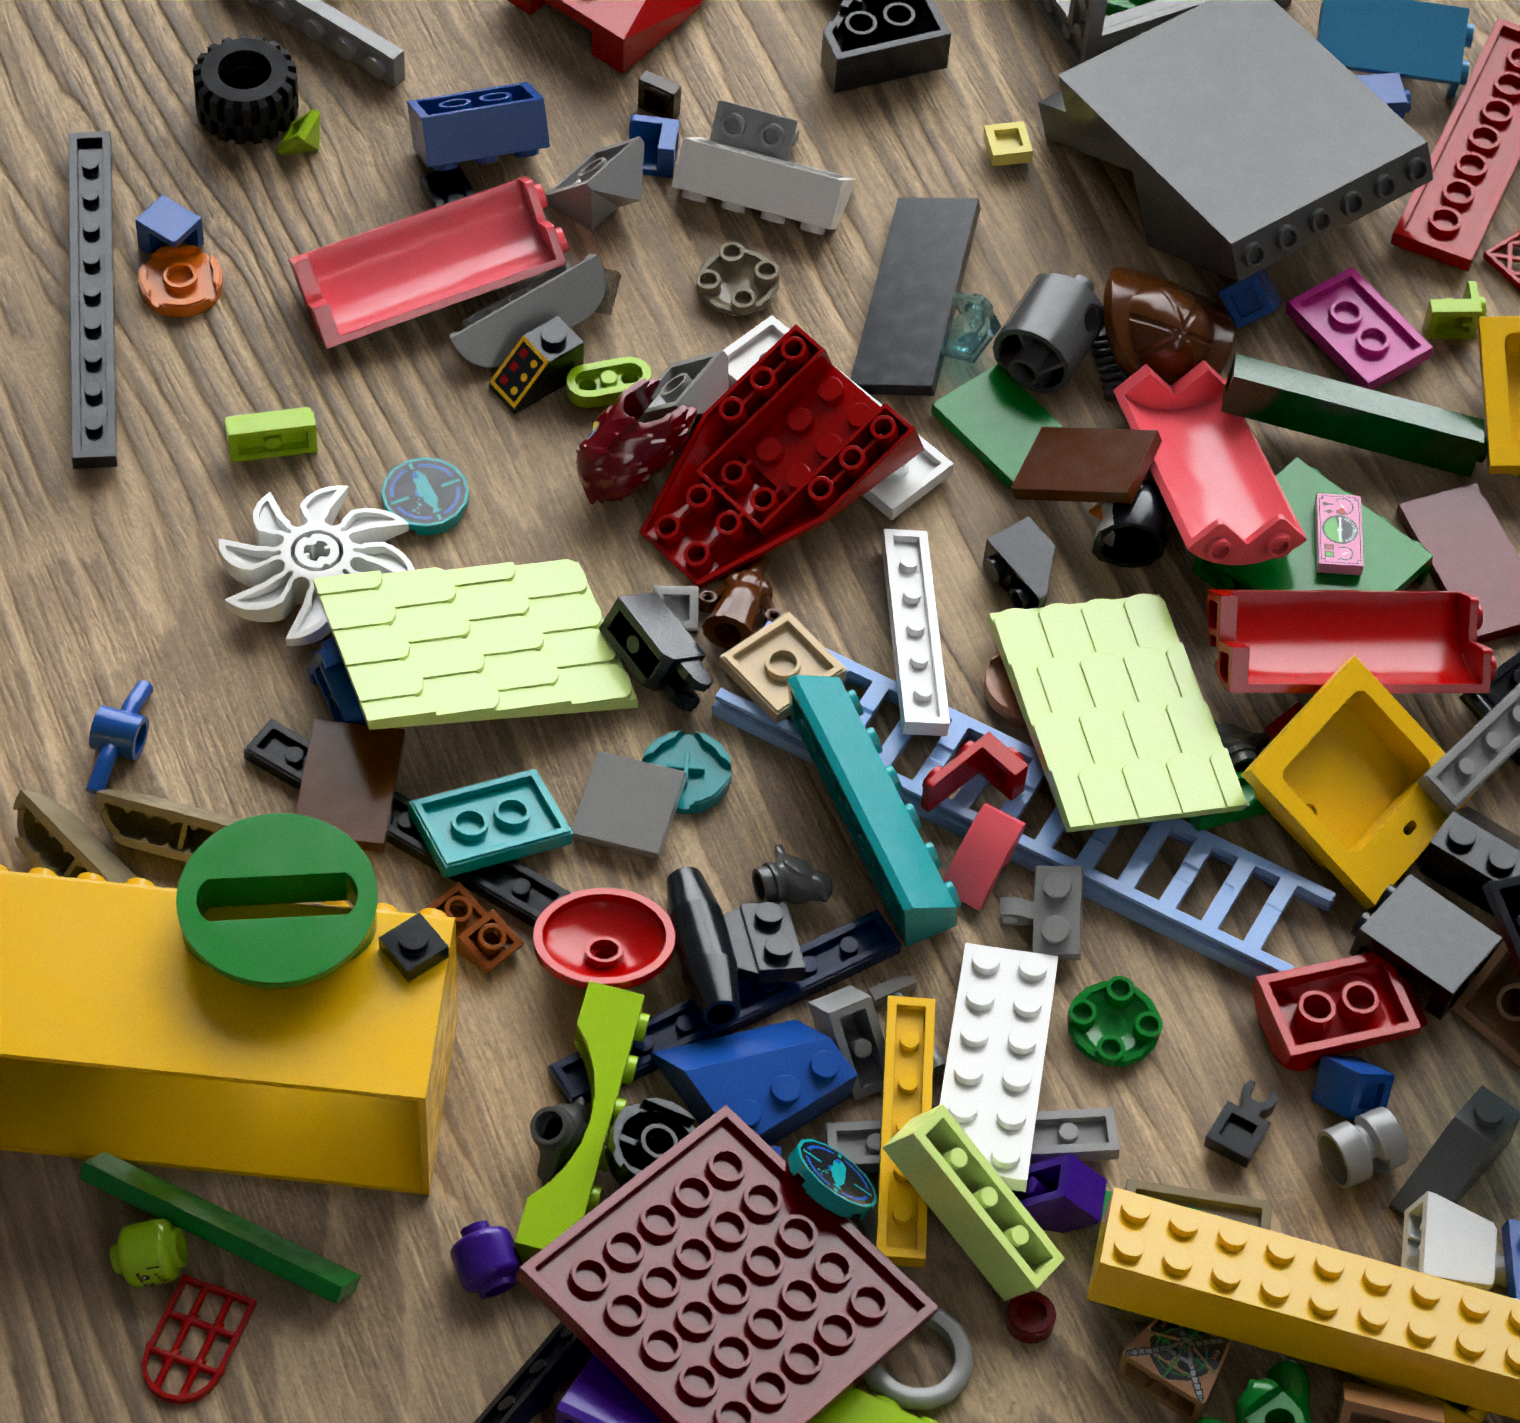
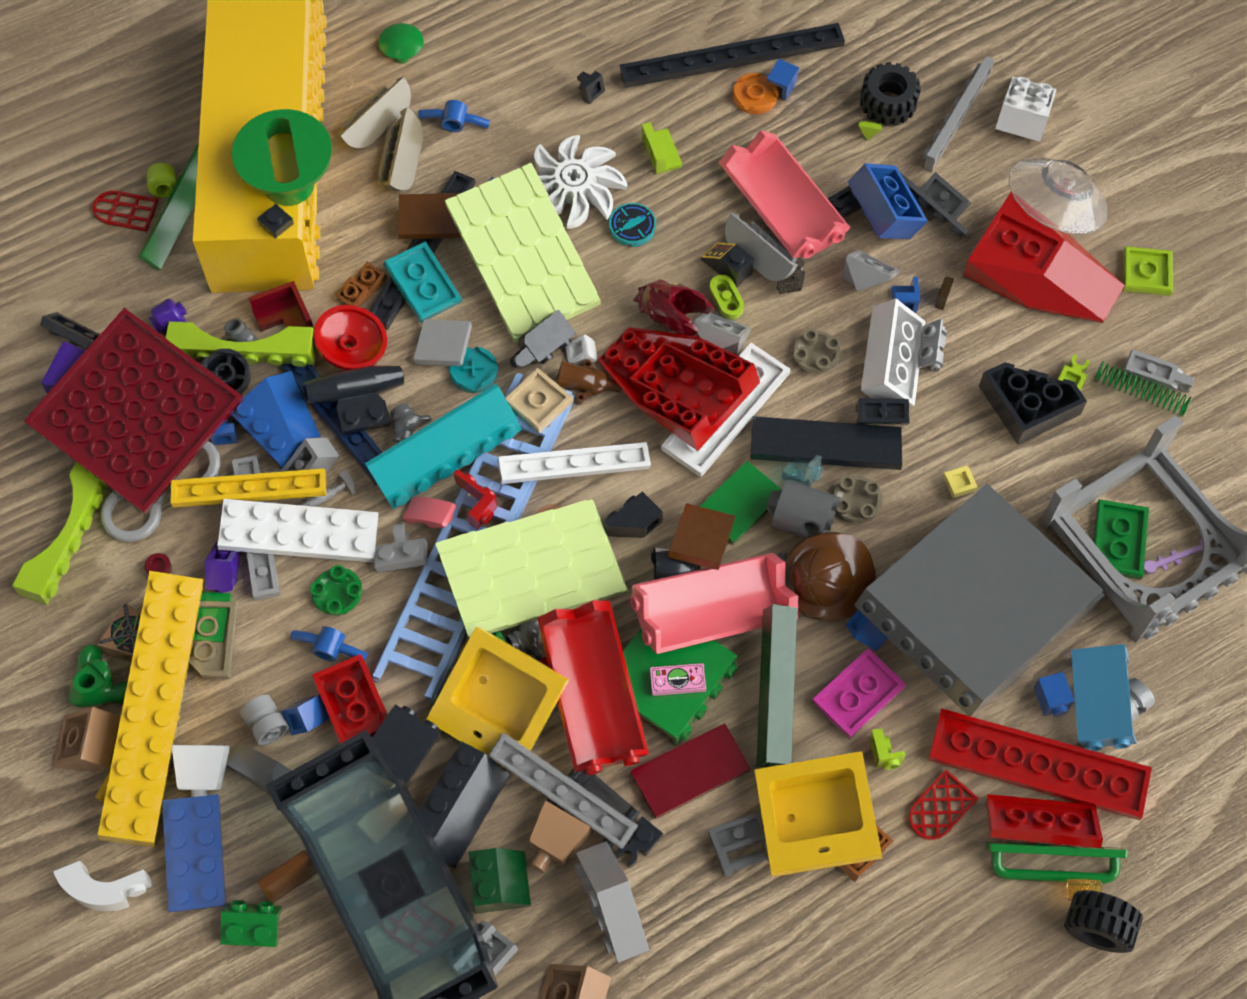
camera: 85 degrees right, 10 degrees up
(105, 512) = (591, 86): none -> black tile
(483, 61) = (944, 200): none -> dark grey bracket
(506, 1046) = (280, 306): none -> dark red panel
(832, 1179) = (210, 453): tile -> none
(873, 211) = (882, 411): none -> black hinge
(973, 1203) = (197, 518): yellowish green brick -> none
(1012, 268) = (859, 498): none -> dark tan dish
(1219, 1042) = (327, 643): none -> blue piece
(1241, 1129) = (275, 658): black plate -> none

